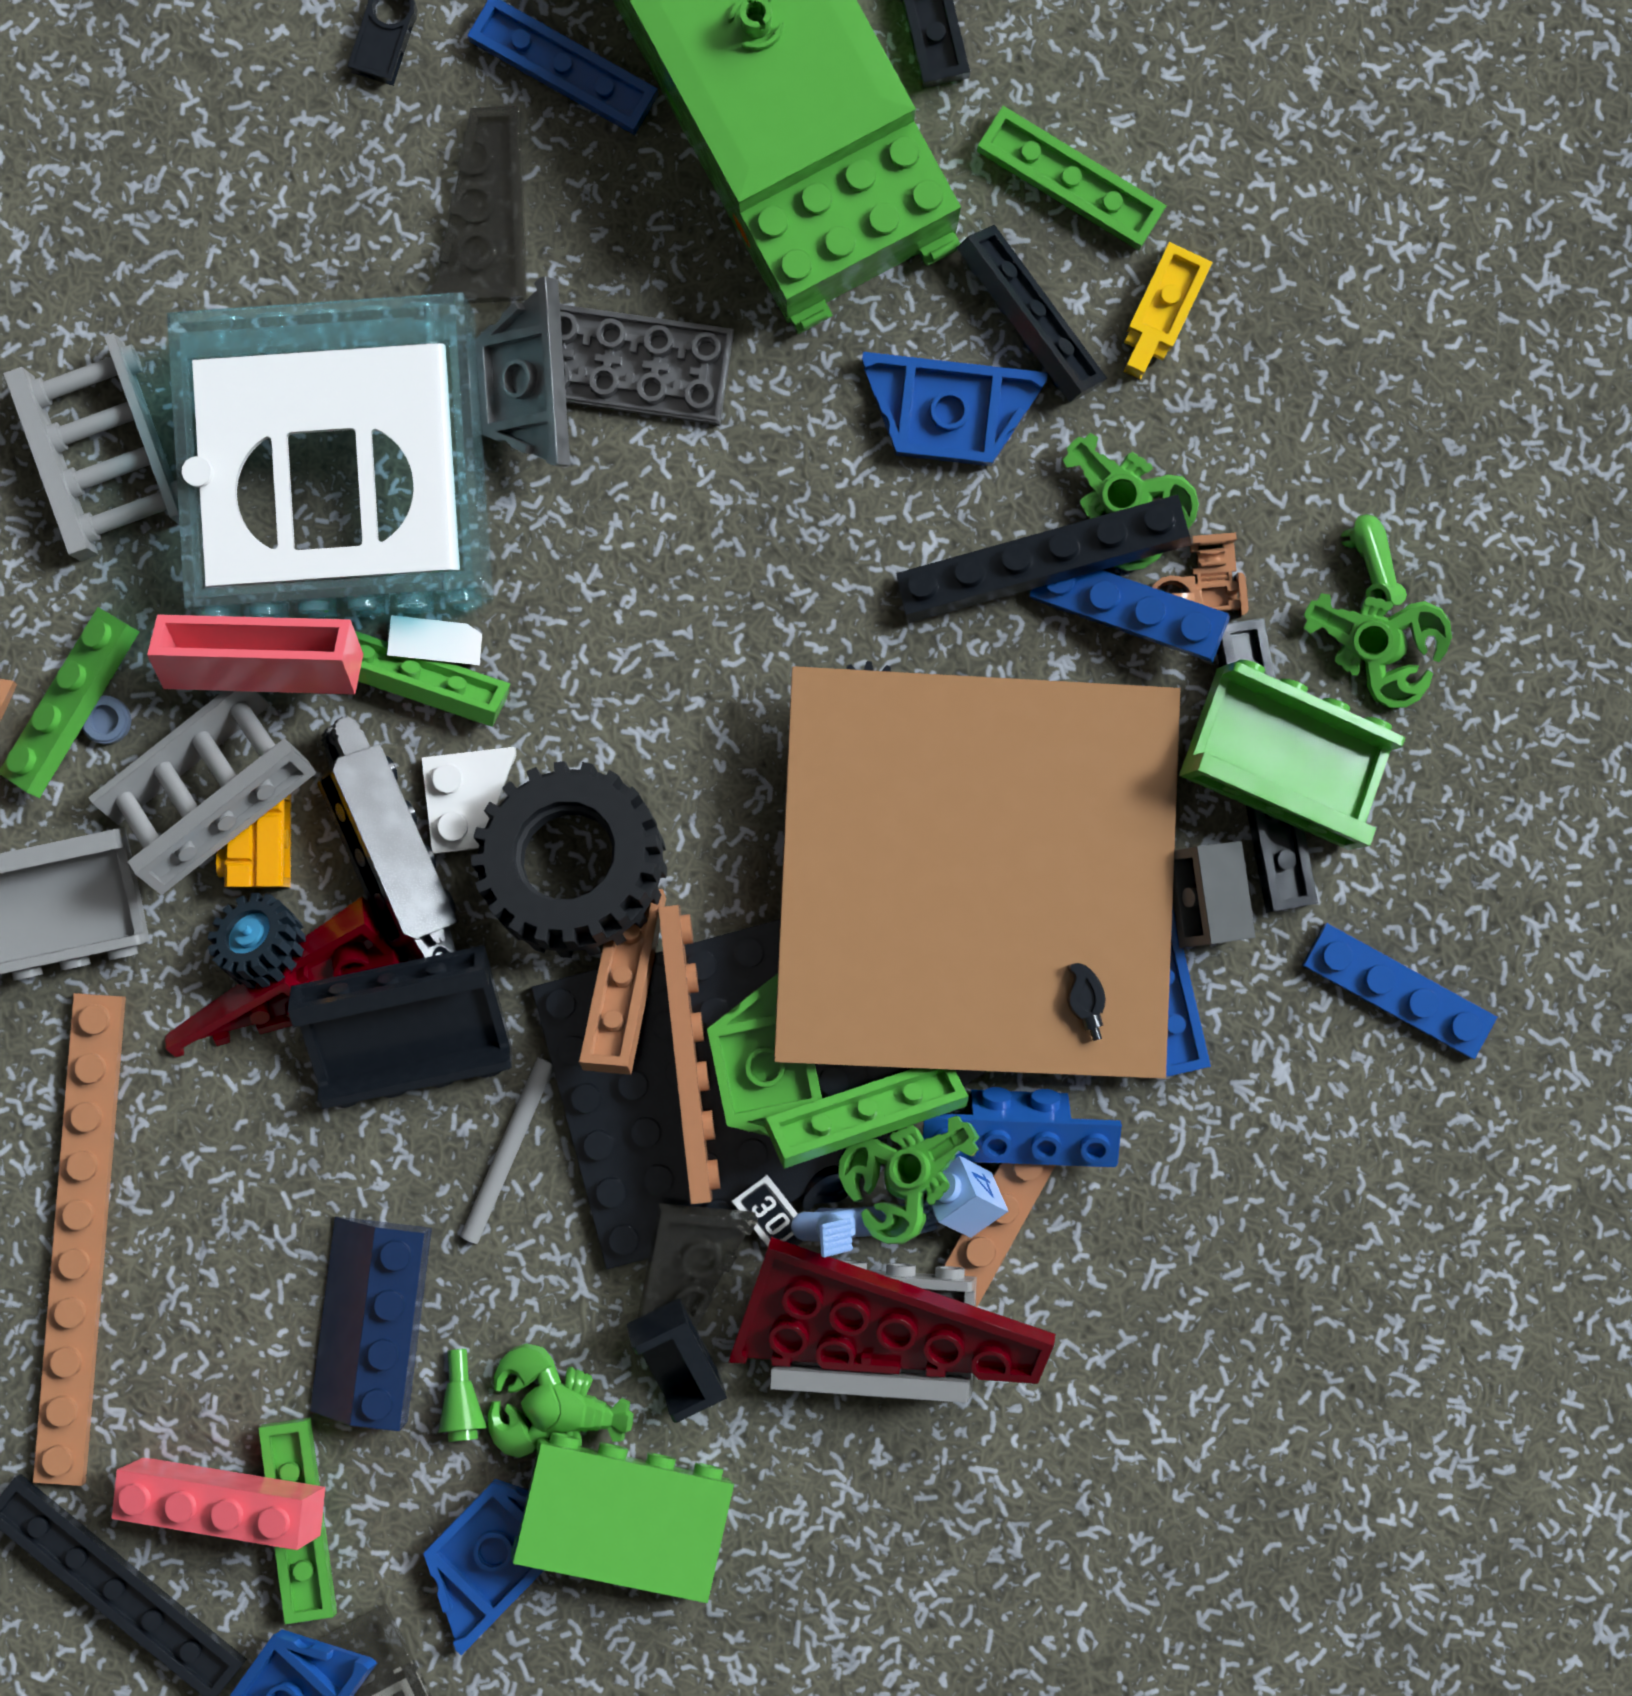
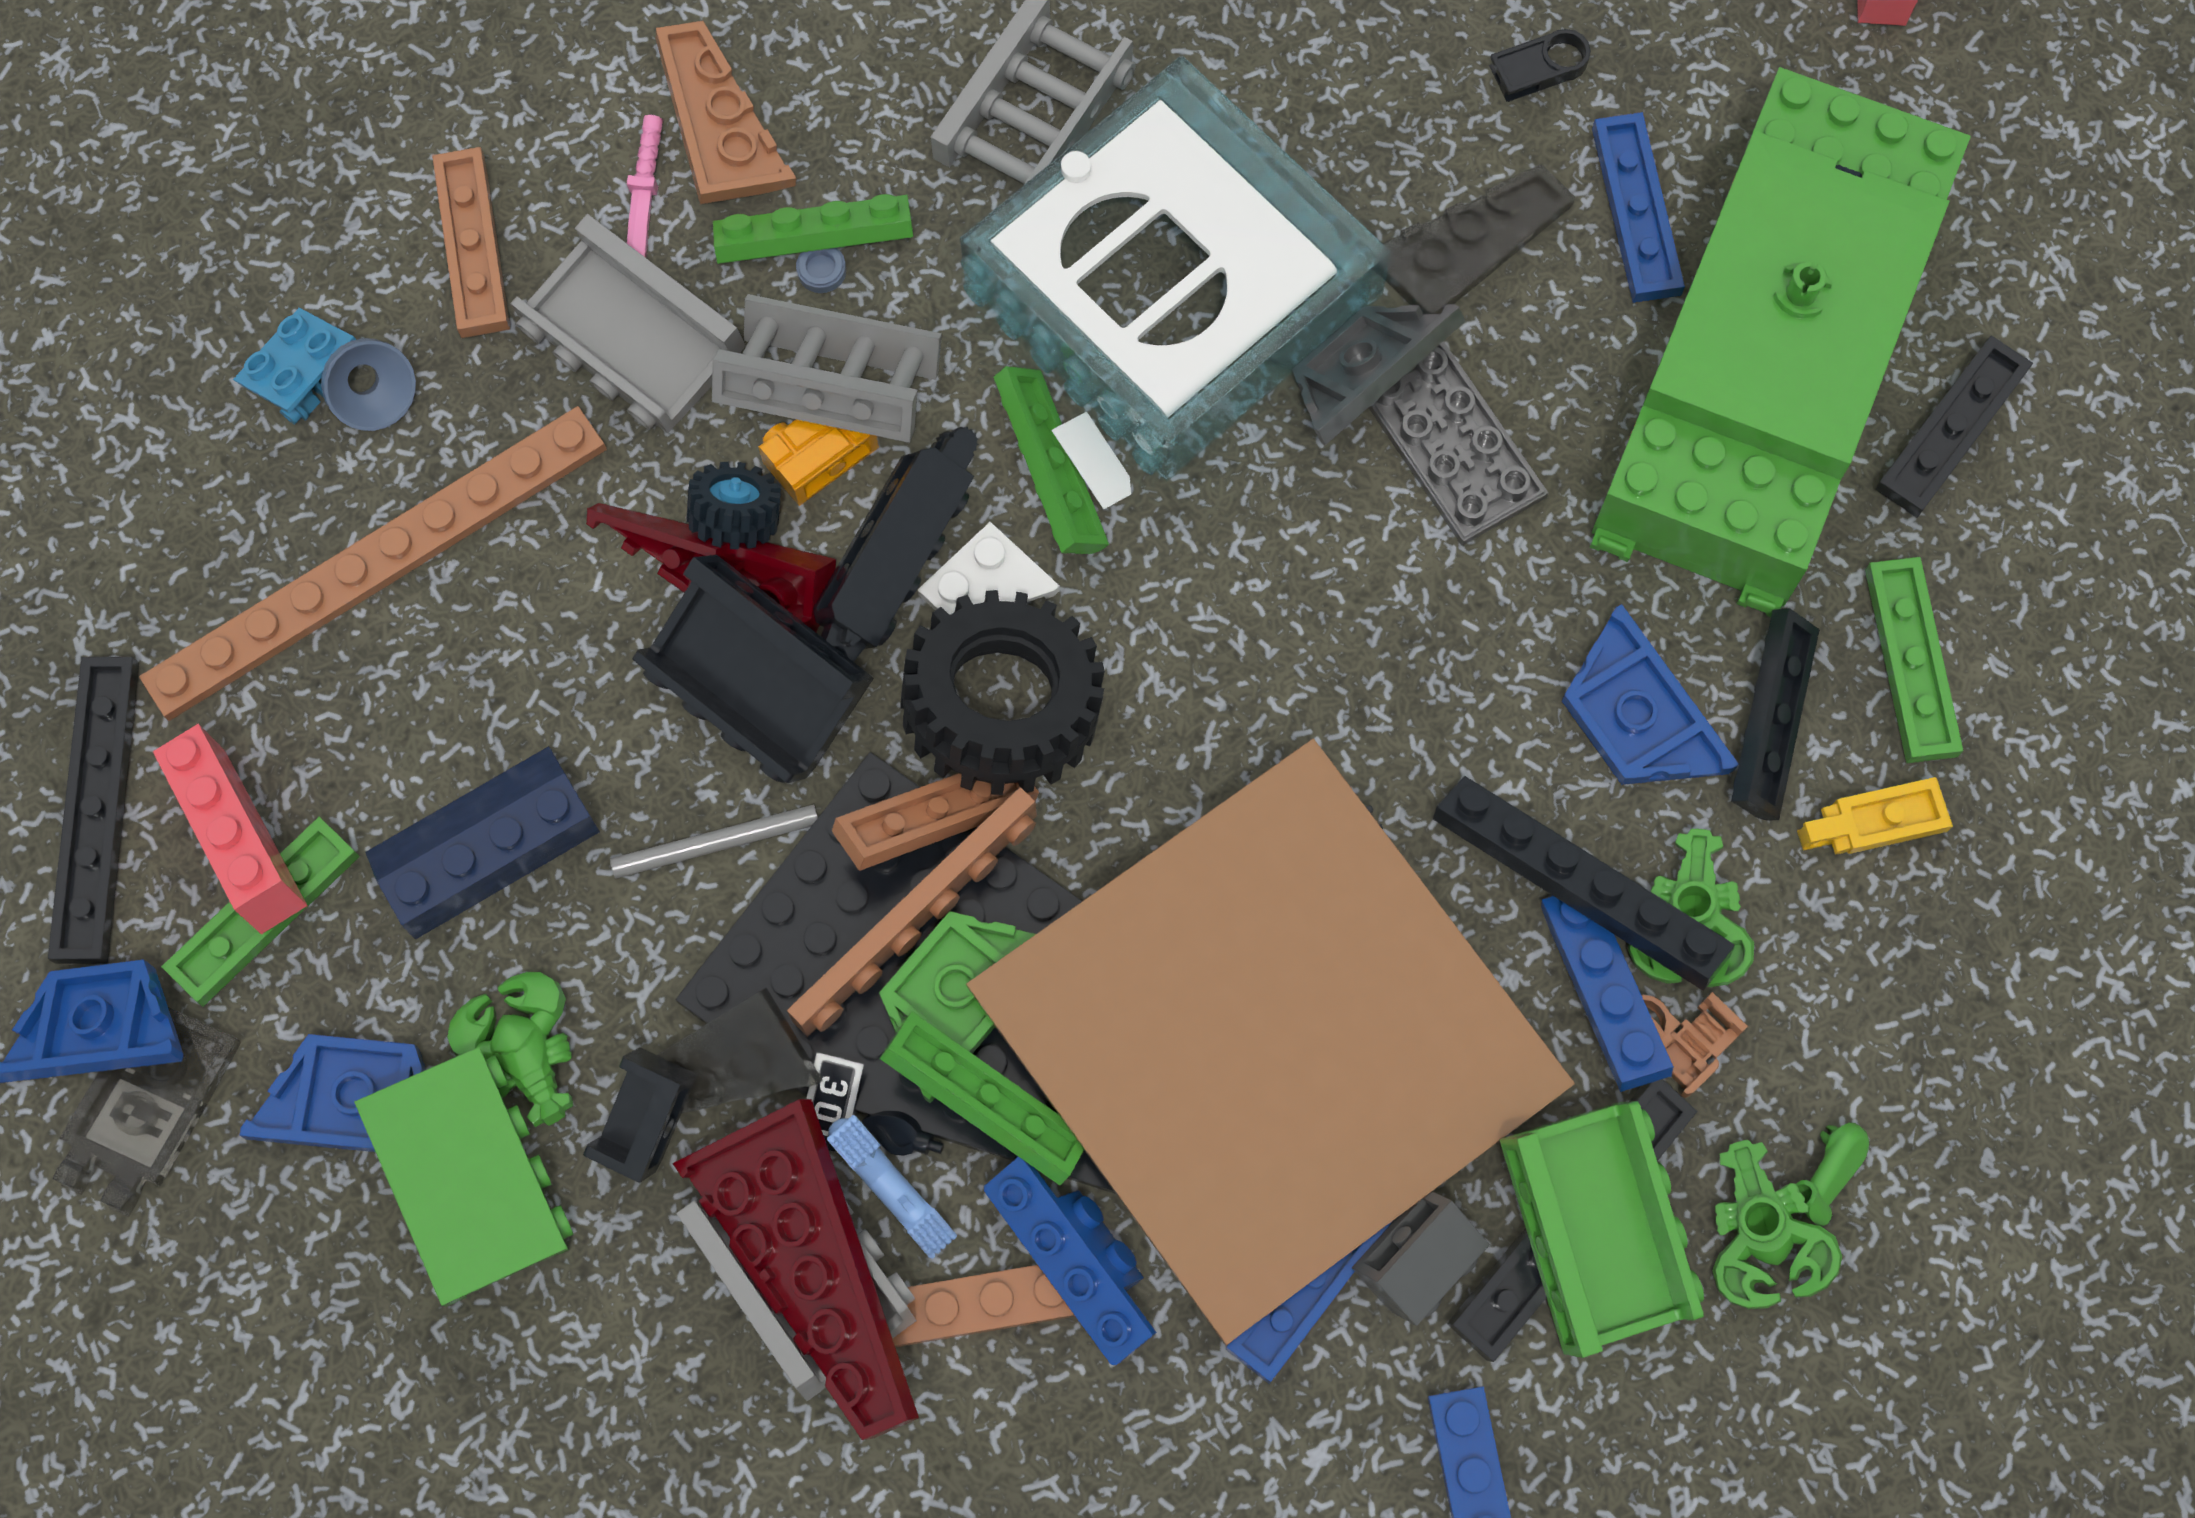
camera: 55 degrees right, 15 degrees down
(256, 654) = (968, 322): coral brick -> none
(460, 1409) = (458, 972): bright green cone -> none
(907, 1175) = (960, 1182): bright green animal -> none
(971, 1199) = (979, 1250): light blue brick -> none
(1087, 998) = (1239, 1214): black piece -> none

